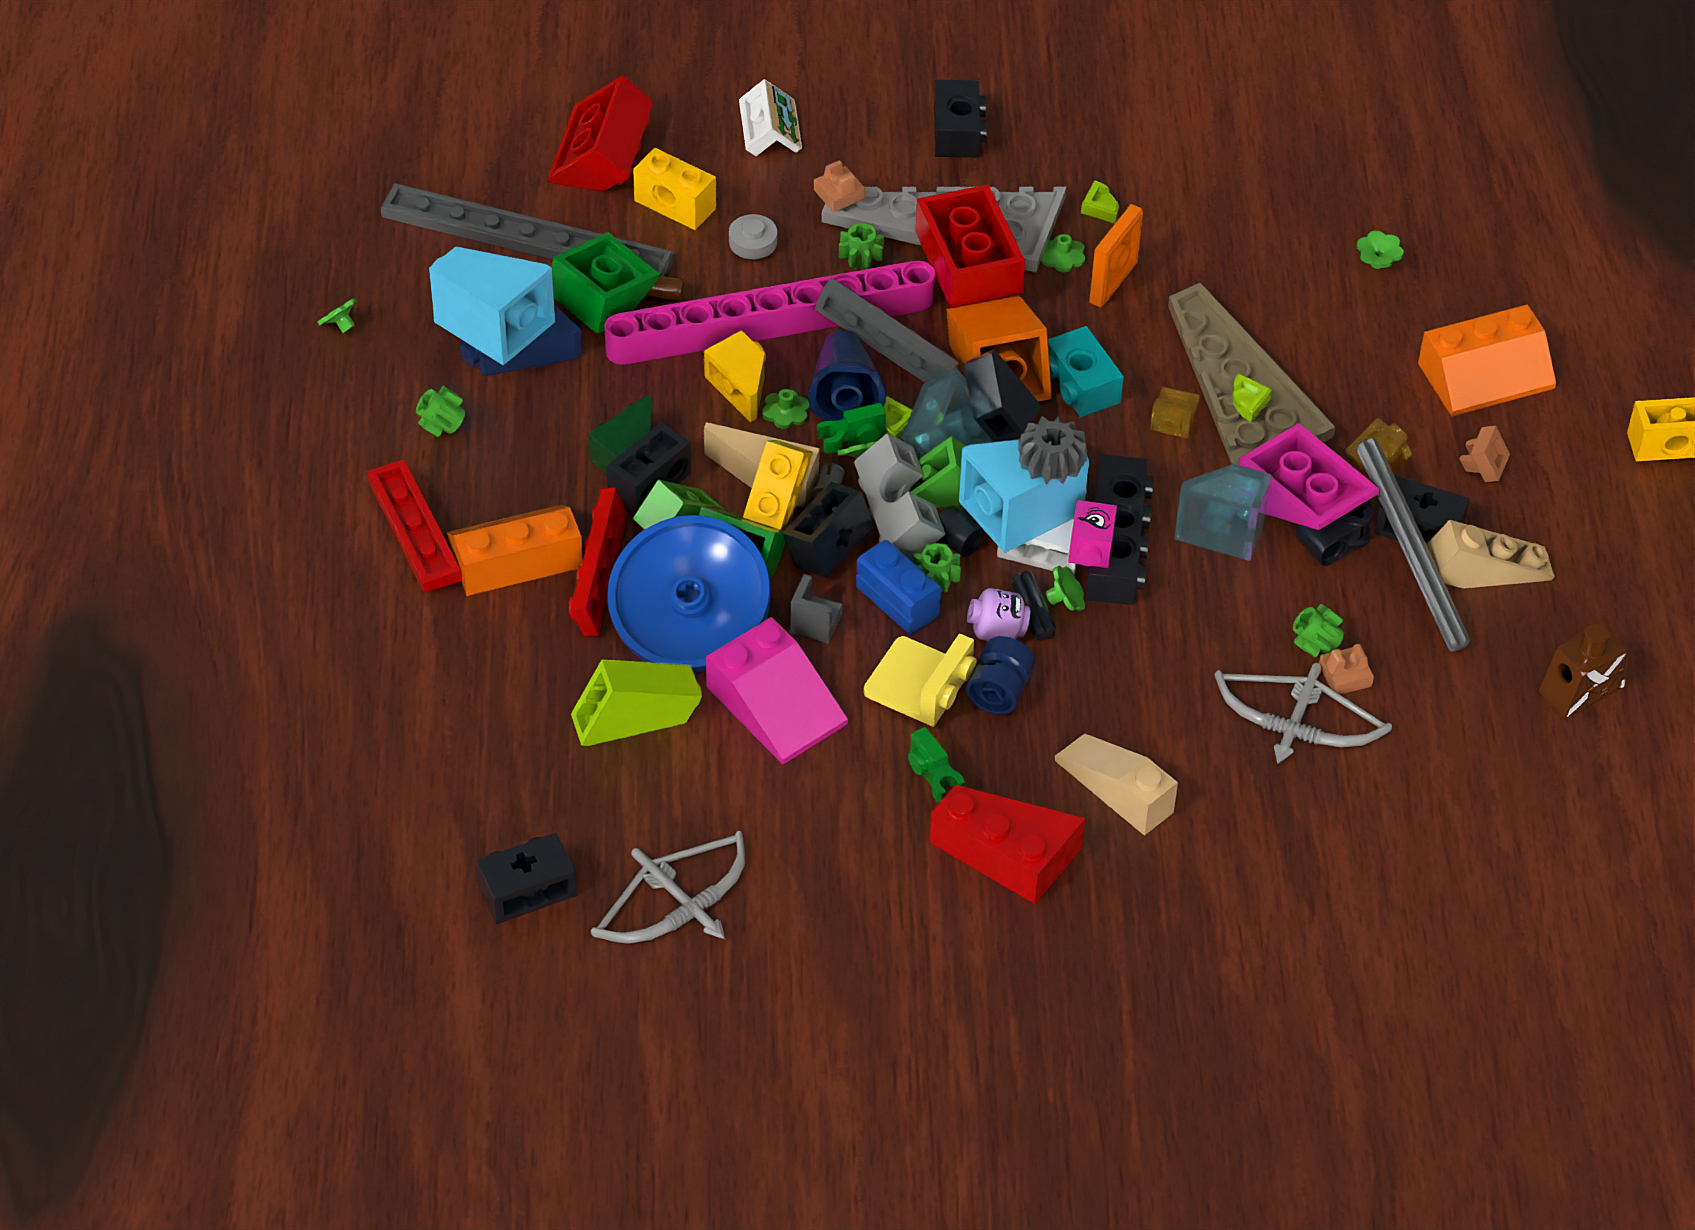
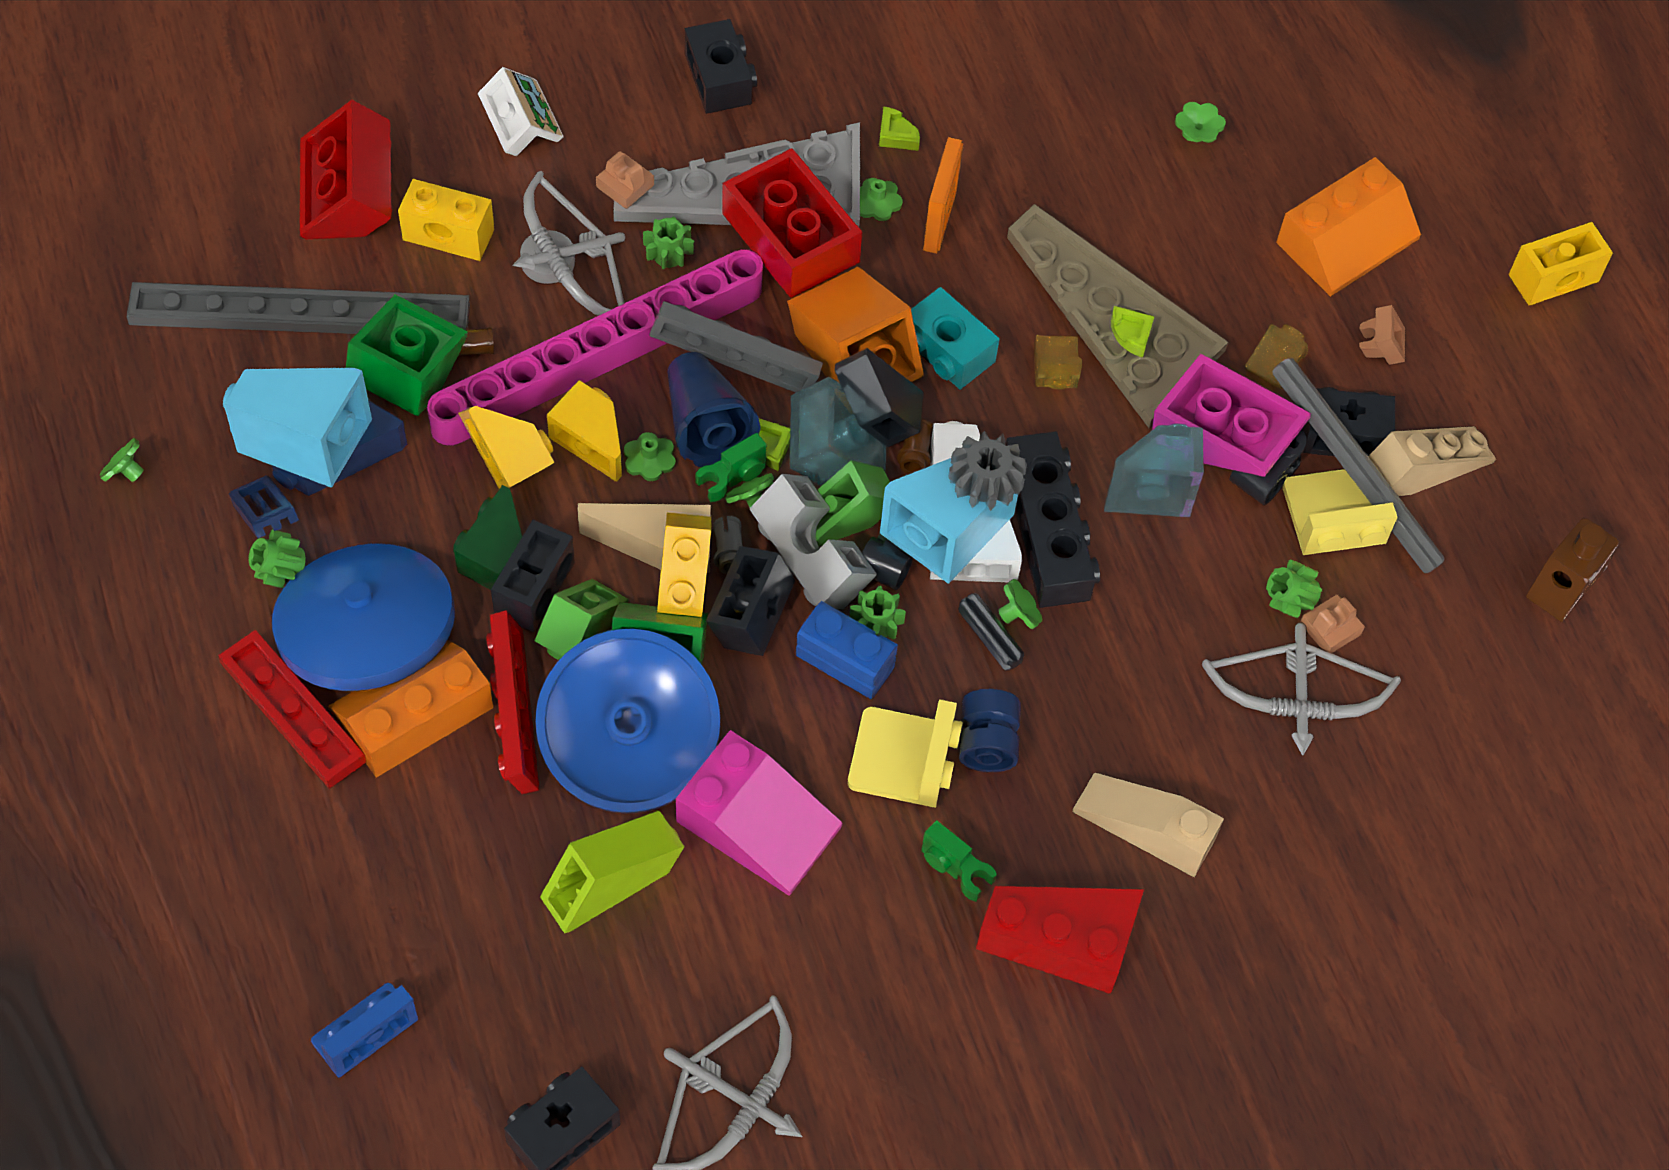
camera: 20 degrees left, 10 degrees up
(391, 767) = (365, 1028): none -> blue bracket
(441, 372) = (268, 516): none -> dark blue tile
(496, 469) = (363, 617): none -> blue dish
(663, 366) = (507, 445): none -> yellow slope
(756, 234) = (555, 256): none -> light grey piece
(812, 615) = (766, 705): dark grey panel -> none
(998, 614) = (963, 657): lavender head -> none
(1092, 534) = (1038, 542): dark pink brick -> none
(1382, 583) = (1334, 513): none -> light yellow bracket

